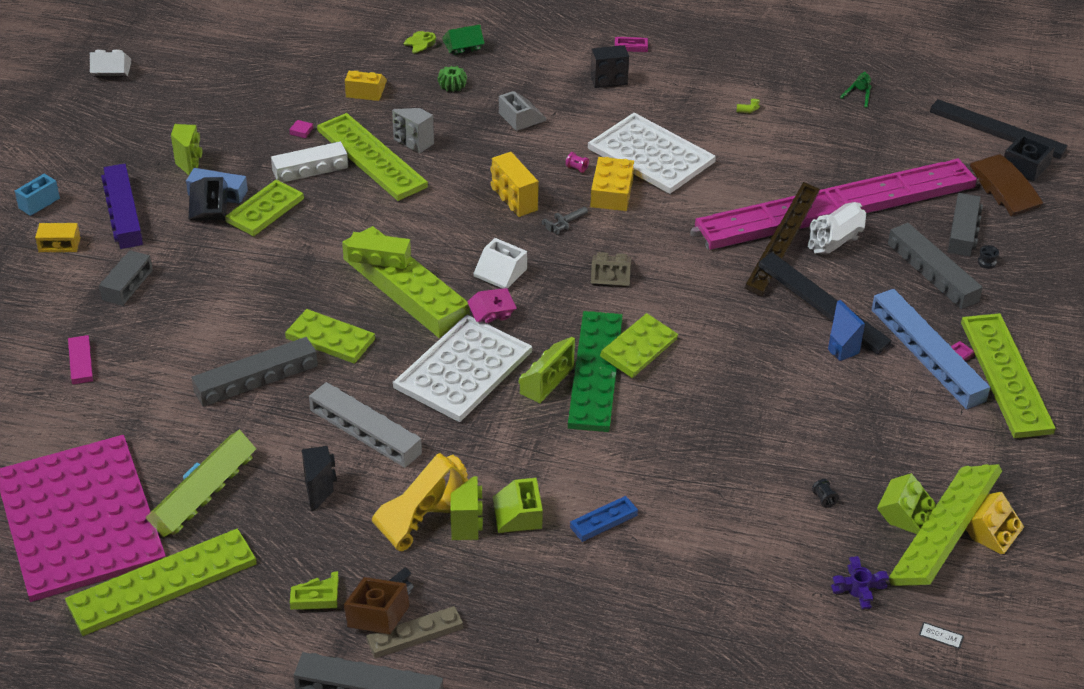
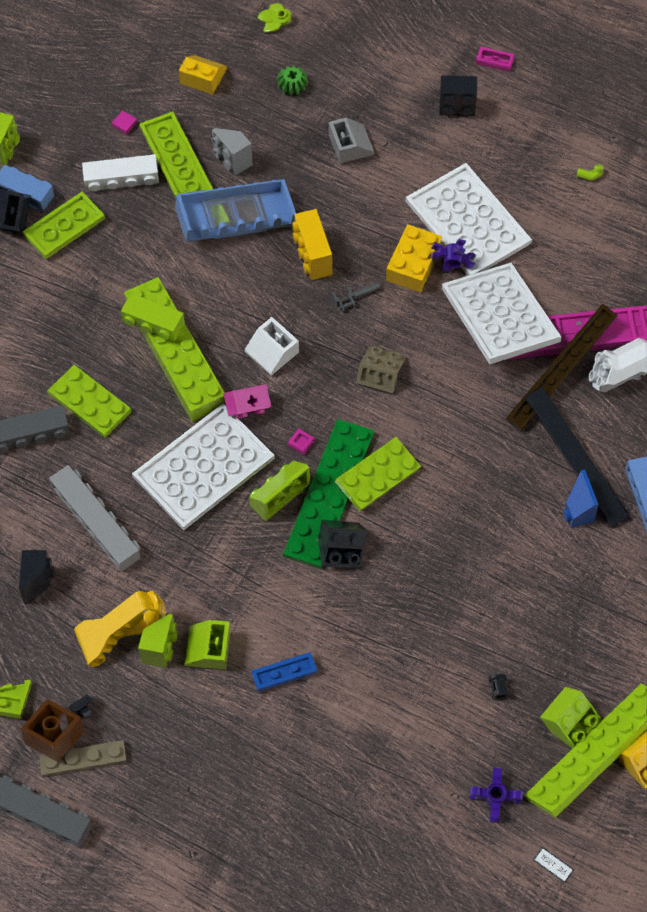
camera: 15 degrees right, 20 degrees up
(430, 170) = (235, 210): none -> medium blue window
(464, 39) = (319, 26): green slope -> none
(553, 334) = (301, 441): none -> dark pink tile
(573, 158) = (387, 221): dark pink bush -> none
(625, 401) = (341, 543): none -> black slope
(650, 172) = (453, 255): none -> dark purple pin
(711, 206) = (501, 313): none -> white plate

